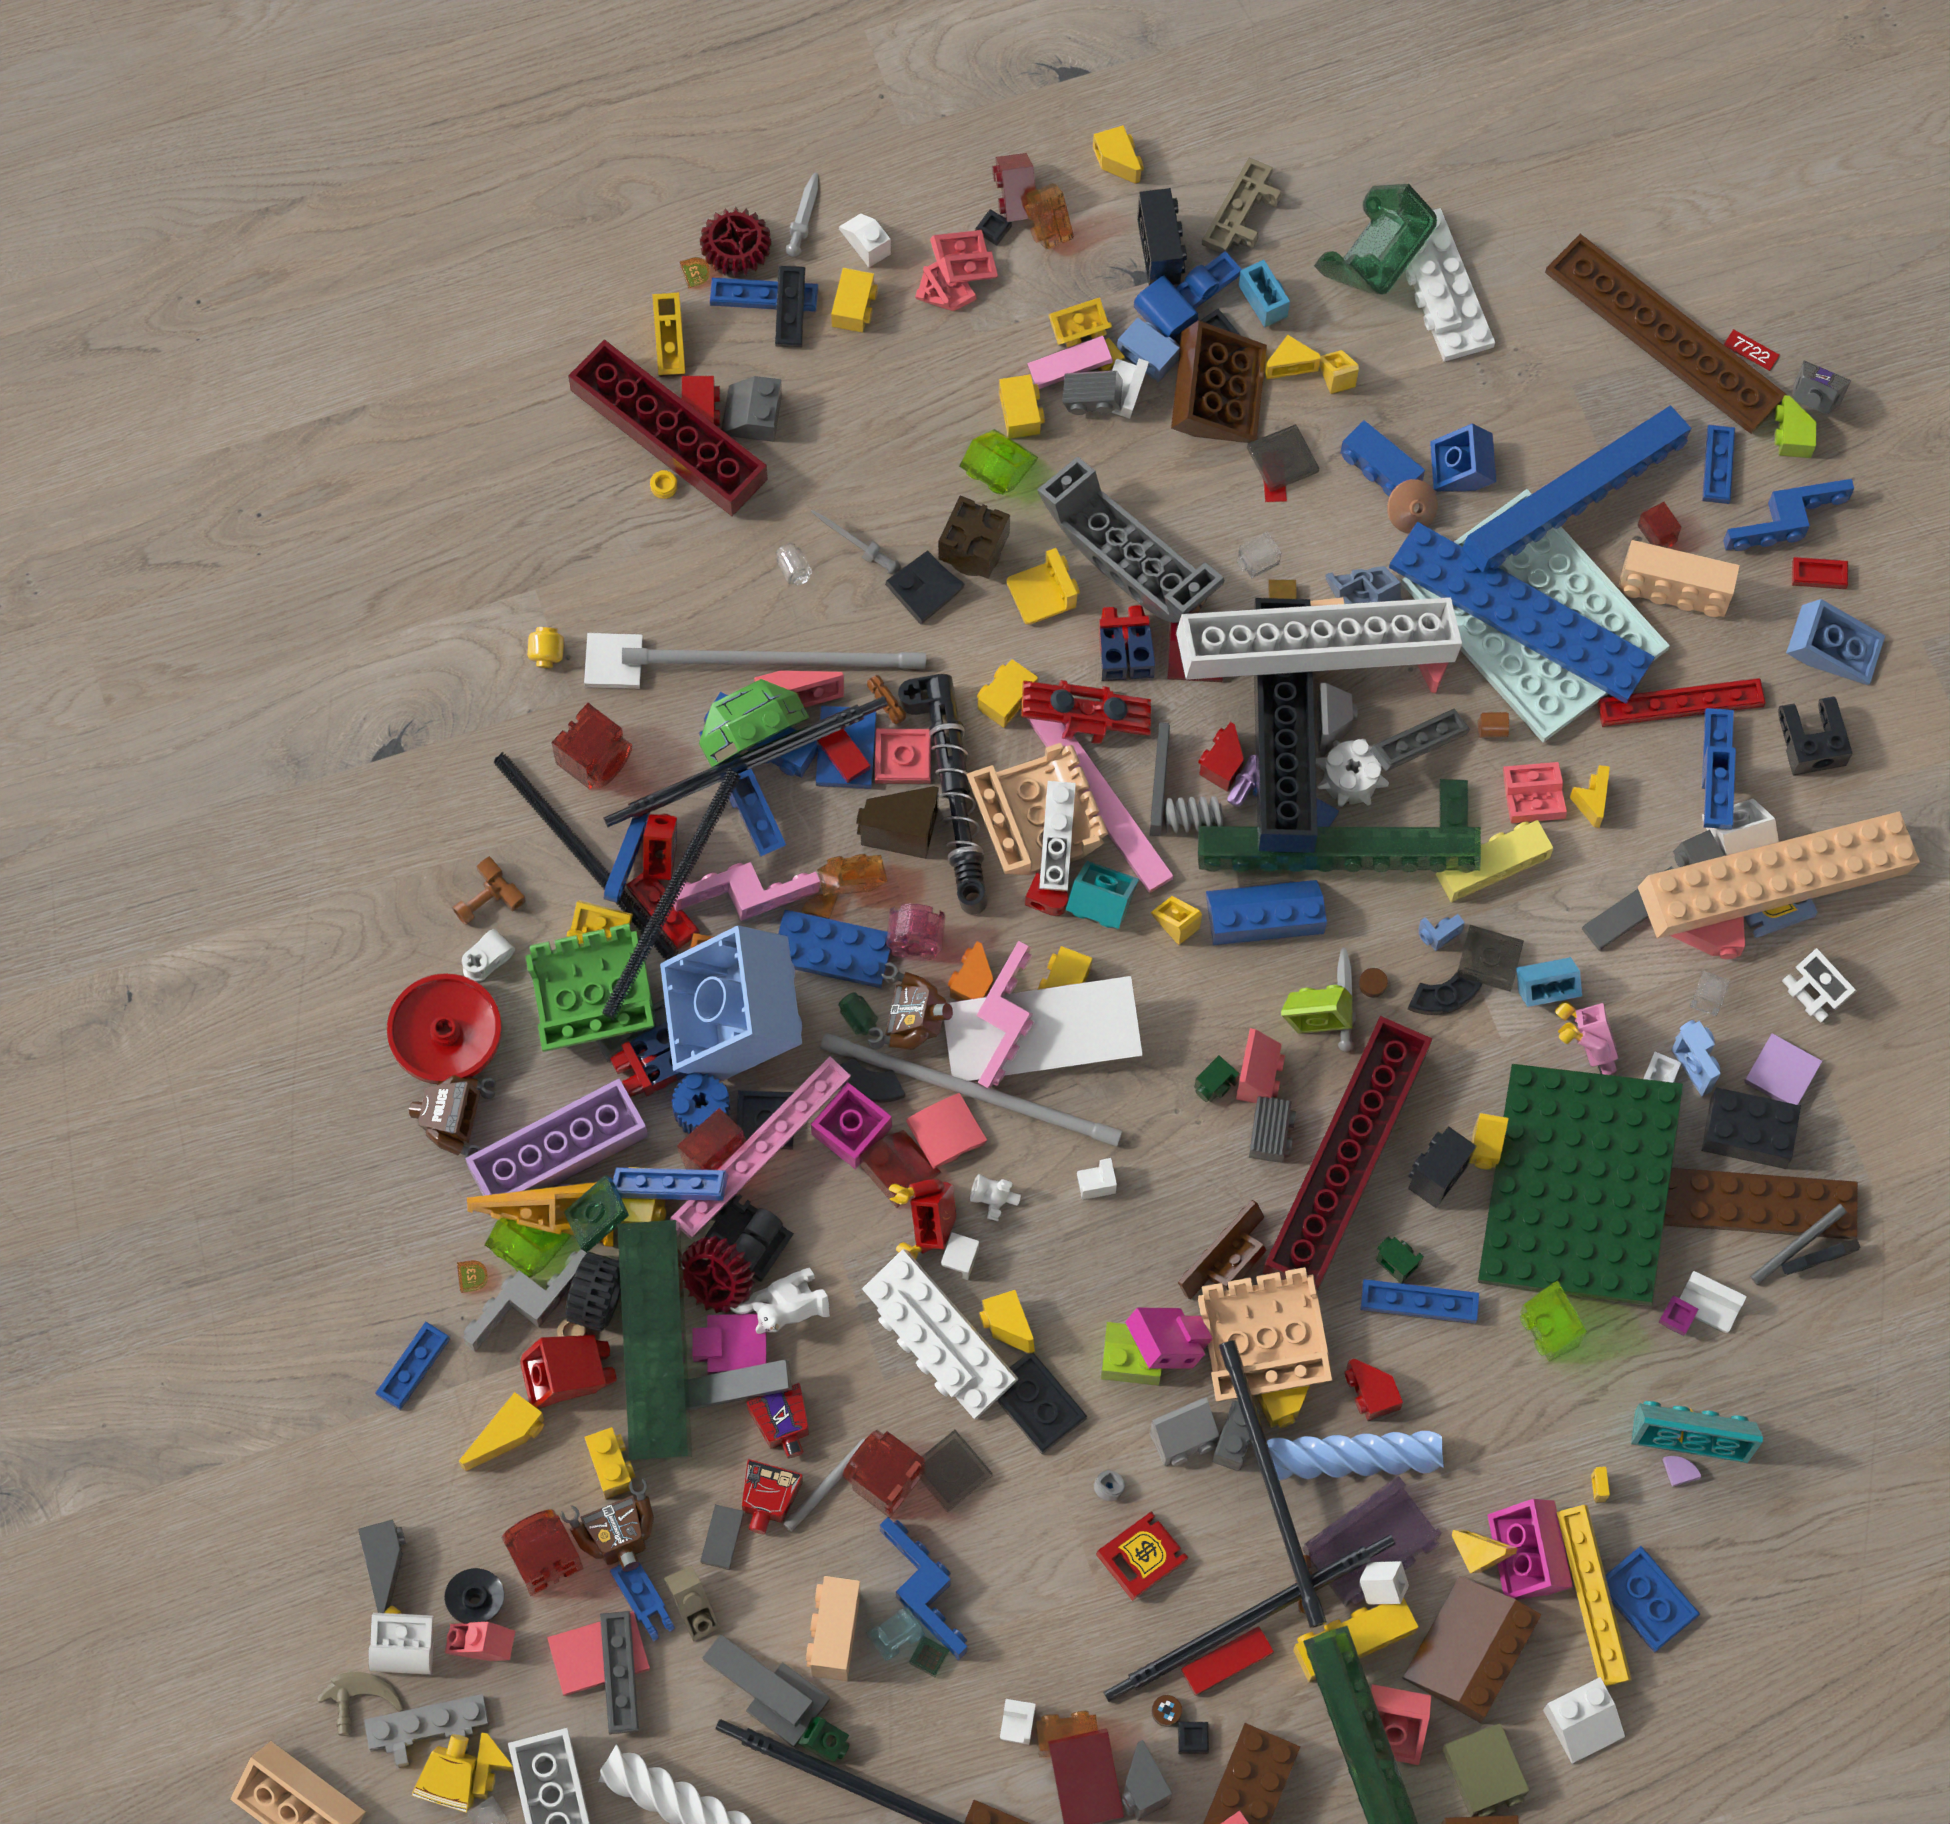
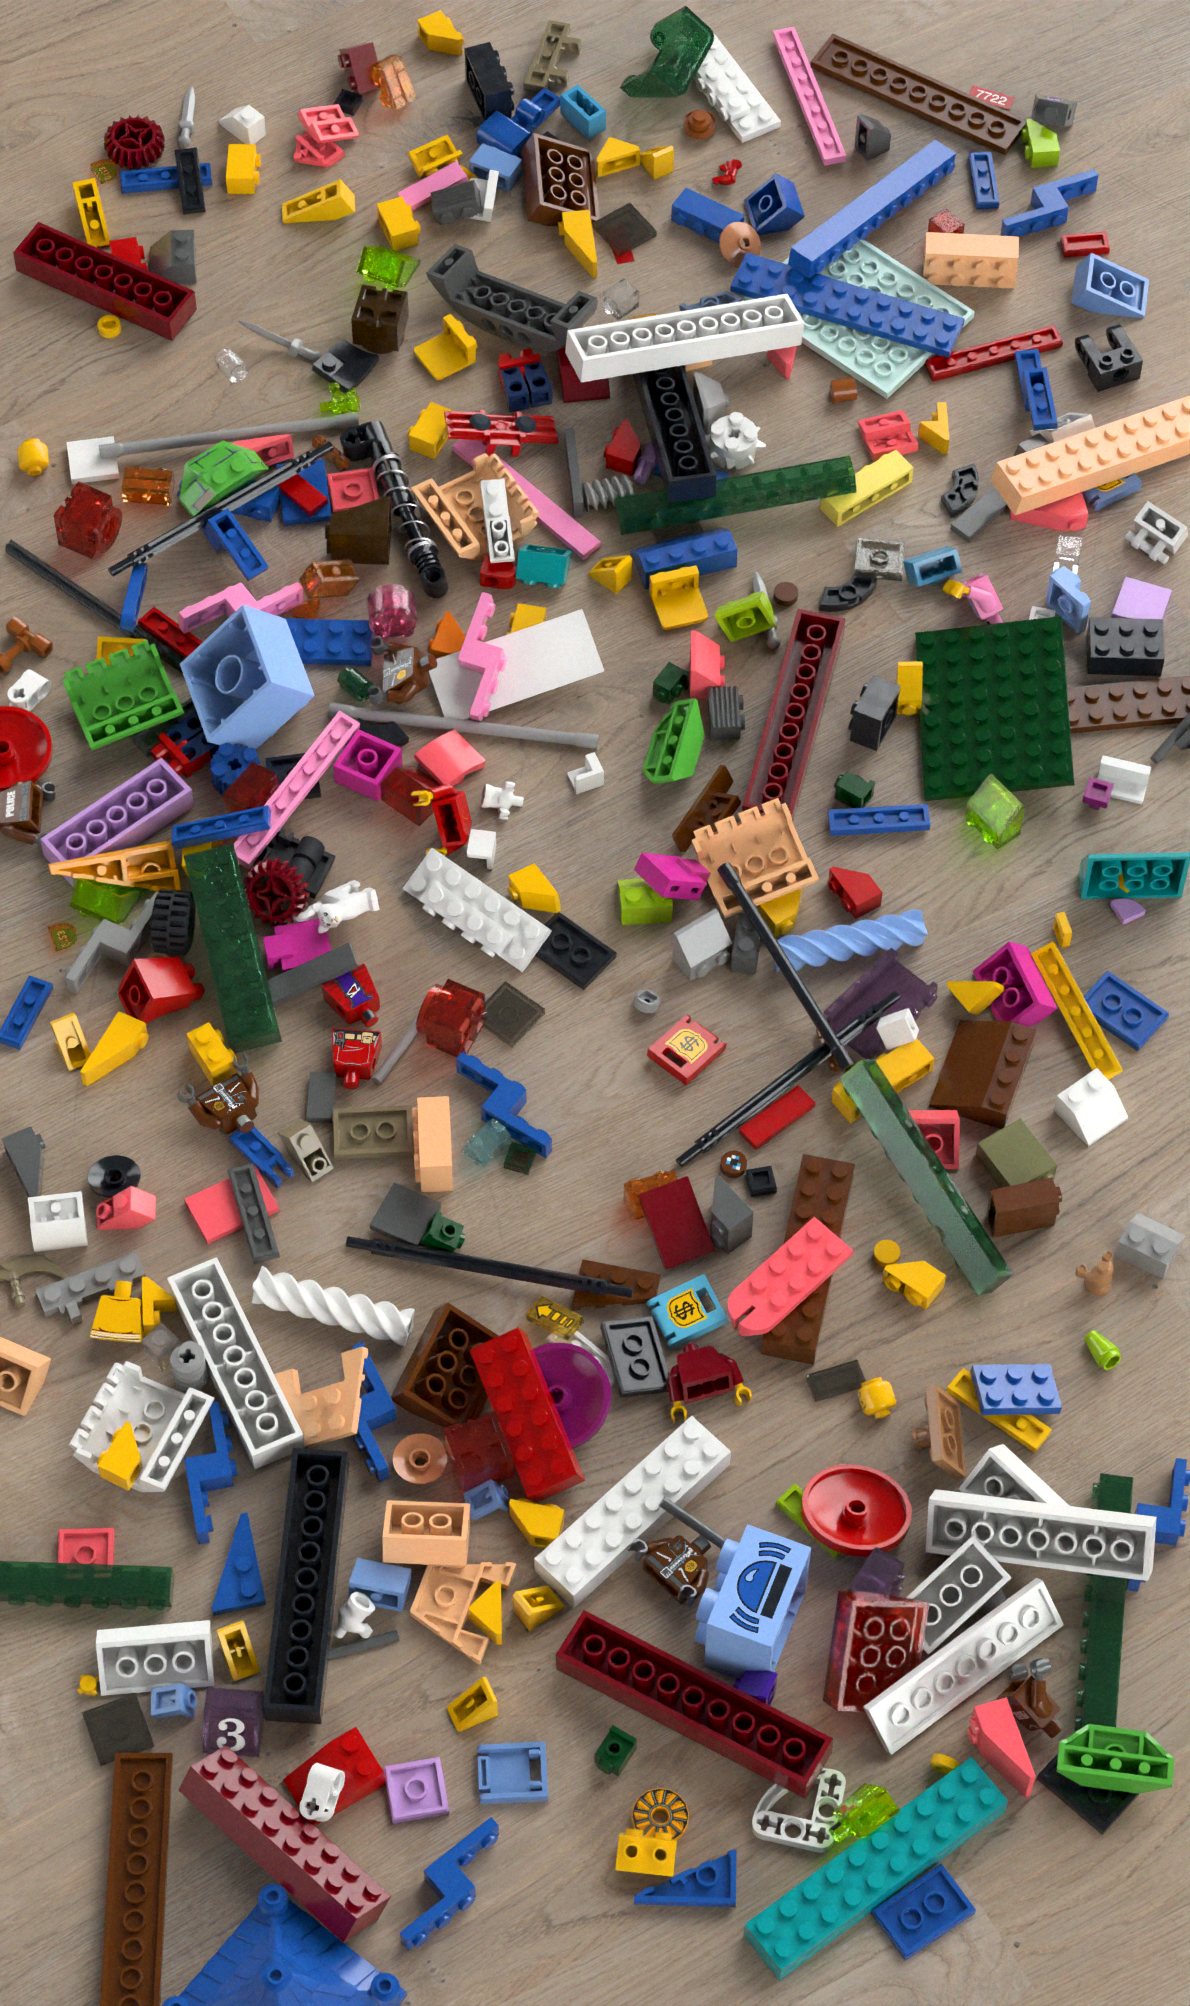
camera: 10 degrees left, 10 degrees down
(456, 1417) = (70, 1041): none -> yellow slope
(541, 1550) = (167, 1128): clear red piece -> none
(596, 1213) = (162, 858): clear green tile -> none
(659, 835) = (161, 580): red torso -> none
(669, 708) = (148, 485): none -> clear orange brick
(689, 859) = (178, 610): black axle -> none
(758, 1681) = (375, 1199): dark grey tile -> none
(770, 1594) = (373, 1132): none -> dark tan plate
(910, 636) = (341, 402): none -> clear neon green piece
(934, 365) = (321, 204): none -> yellow slope
(1017, 1721) = (607, 1192): white panel -> none
(1204, 1164) = (675, 744): none -> bright green wedge
(1226, 463) = (579, 238): none -> yellow slope
(1247, 970) = (677, 598): none -> yellow bracket
(1398, 331) = (699, 124): none -> dark orange plate
(1420, 739) = (784, 408): dark grey tile -> none
(1424, 396) = (731, 168): none -> red piece
(1445, 931) = (835, 547): medium blue bracket -> none
(1453, 803) = (821, 447): clear green plate -> none
(1535, 314) = (809, 96): none -> bright pink plate
(1597, 386) = (871, 137): none -> dark grey slope
(1607, 881) = (963, 490): none -> black tile

